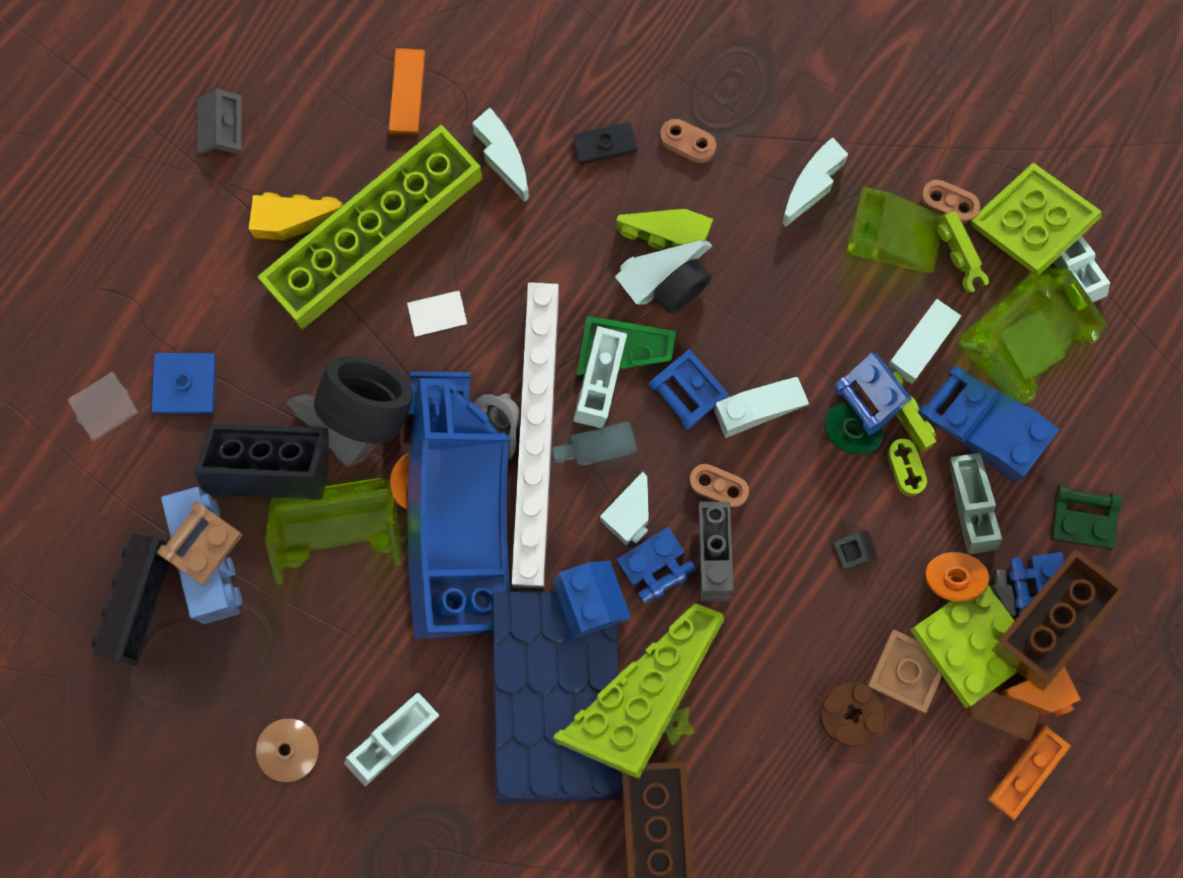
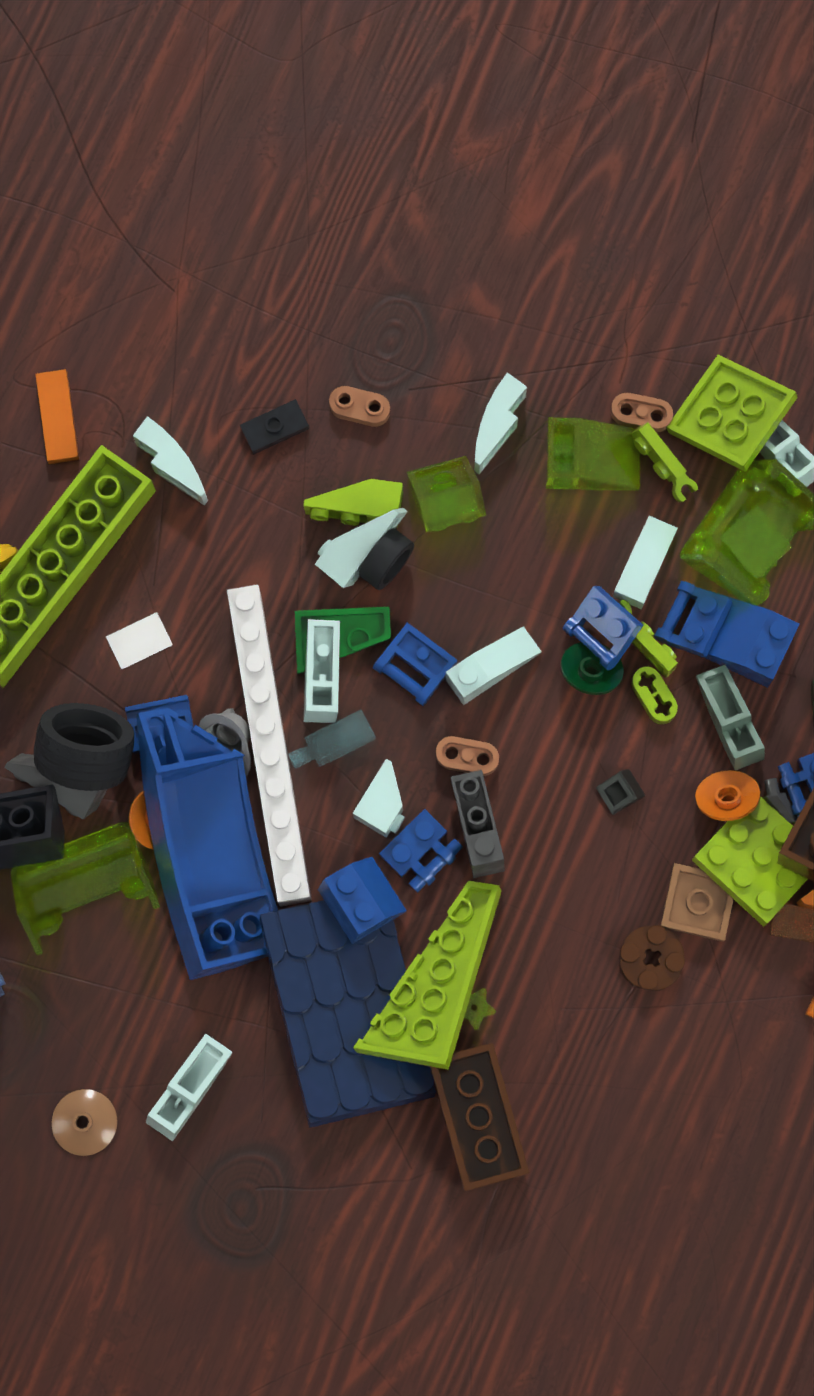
camera: 10 degrees left, 0 degrees up
(752, 238) = (446, 494): none -> clear neon green slope

